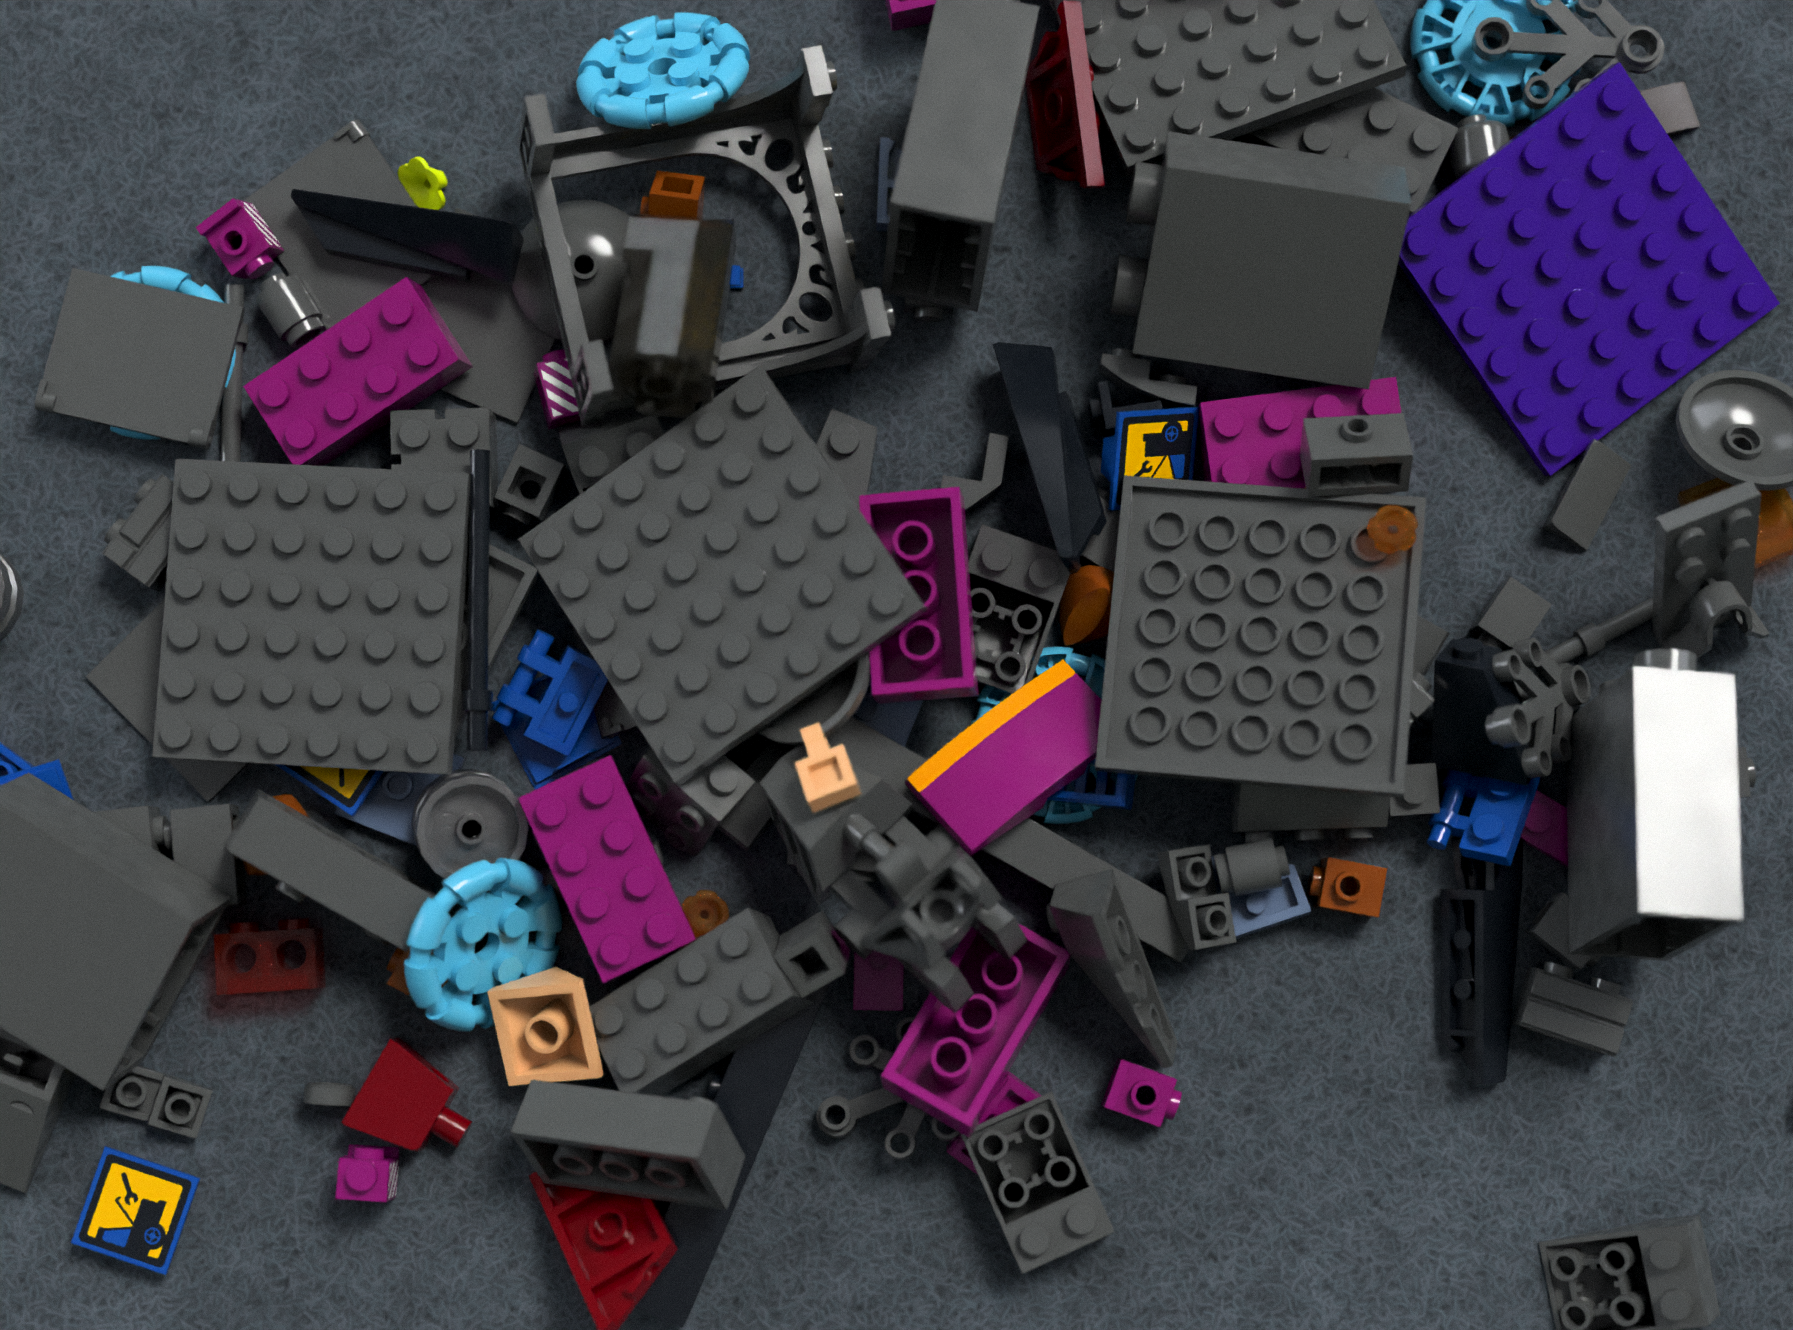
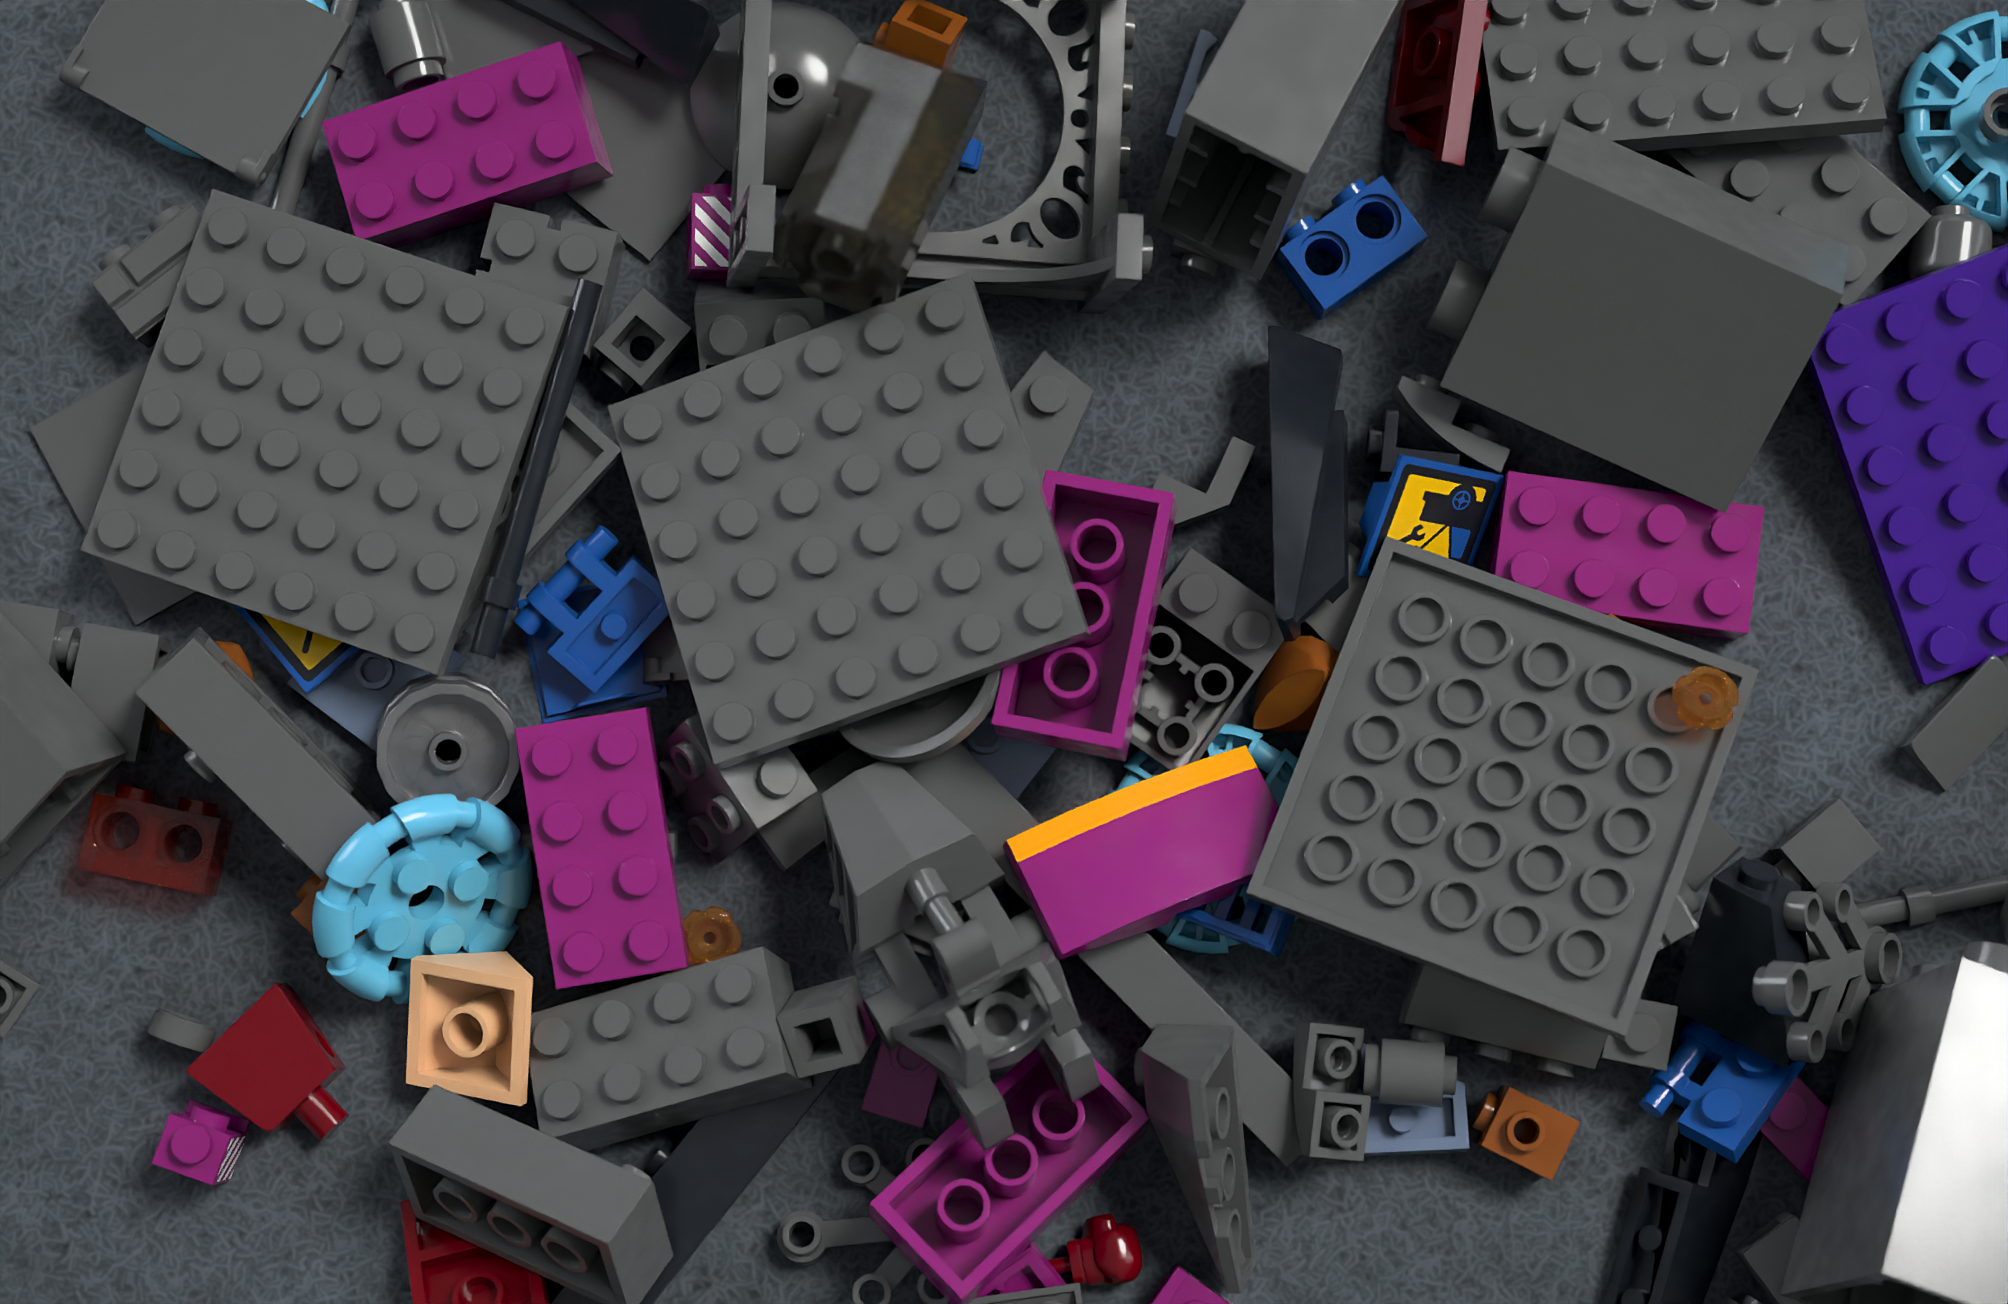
camera: 20 degrees right, 0 degrees up
(826, 772) = (907, 805): light nougat plate -> none
(1045, 274) = (1358, 257): none -> blue brick
(1063, 1065) = (1104, 1254): none -> dark red piece
(1356, 454) = (1685, 591): dark grey brick -> none

